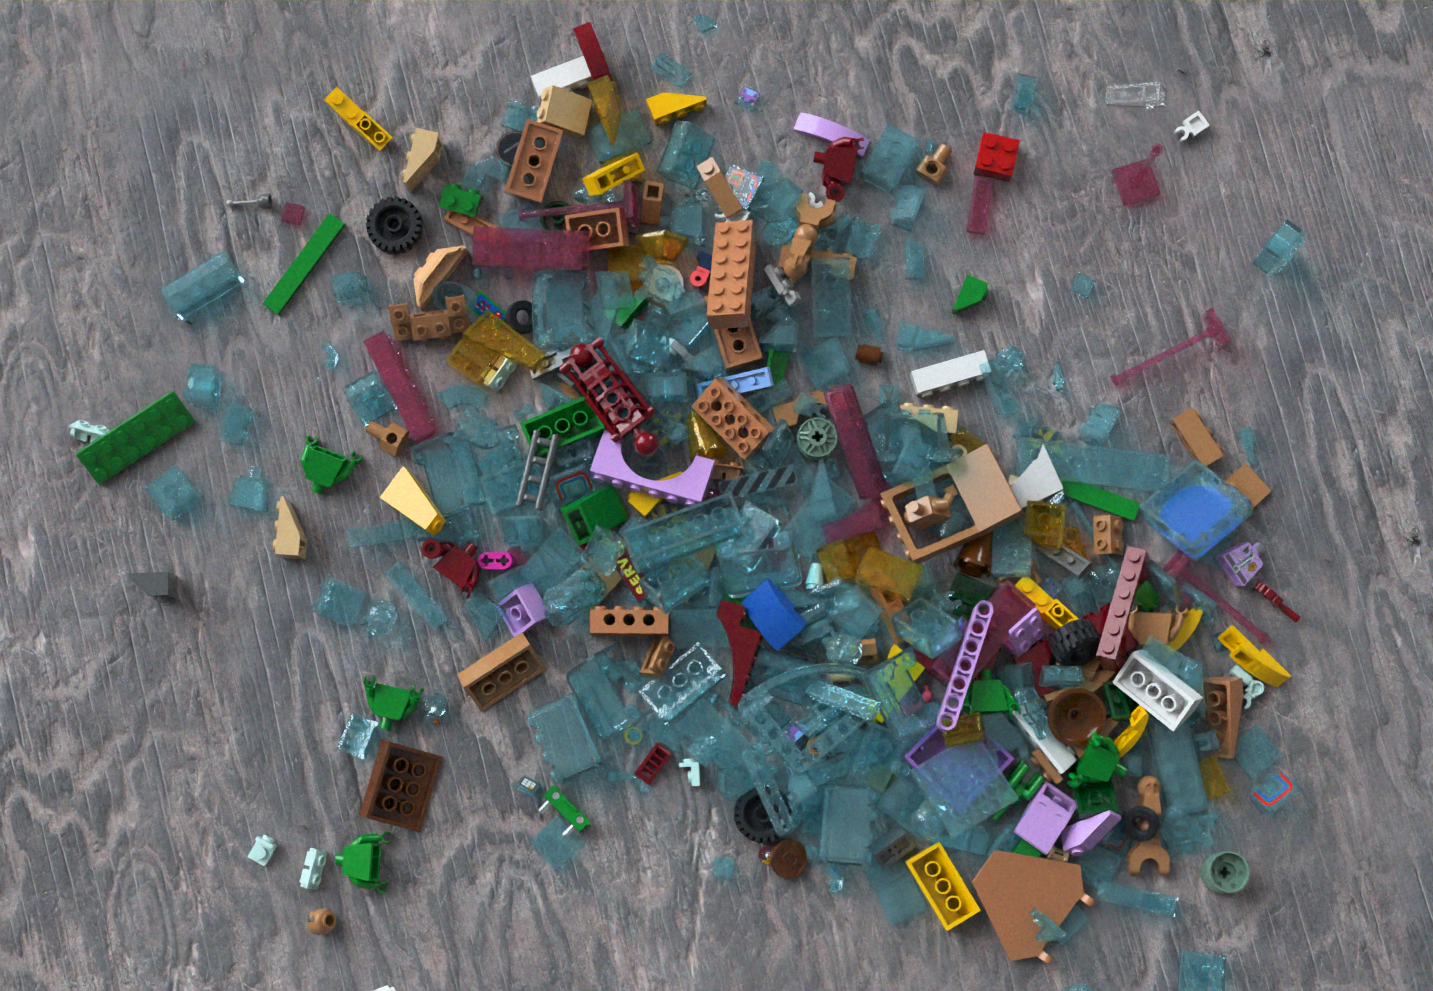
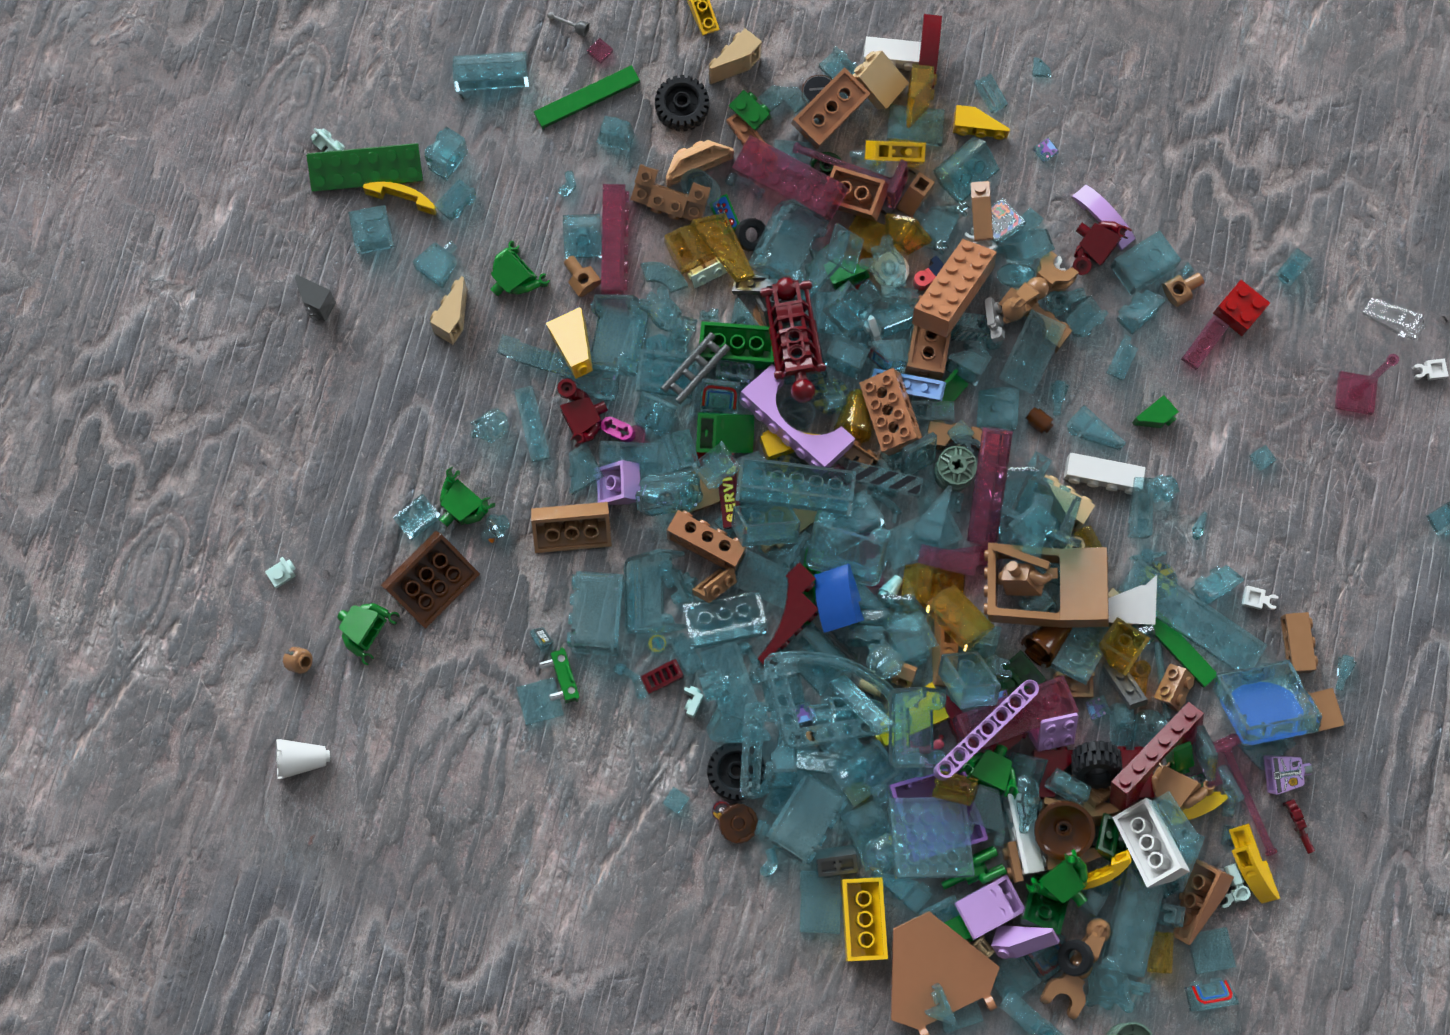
camera: 20 degrees right, 5 degrees down
(160, 450) = (378, 190): none -> yellow slope
(316, 860) = (322, 605): light aqua hinge -> none
(339, 601) = (462, 394): clear light blue bracket -> none
(918, 492) = (1021, 556): none -> medium nougat tile
(1050, 610) = (1088, 725): yellow slope -> none
(1139, 416) = (1256, 598): none -> white plate
(1214, 330) = (1363, 555): clear pink tile -> none

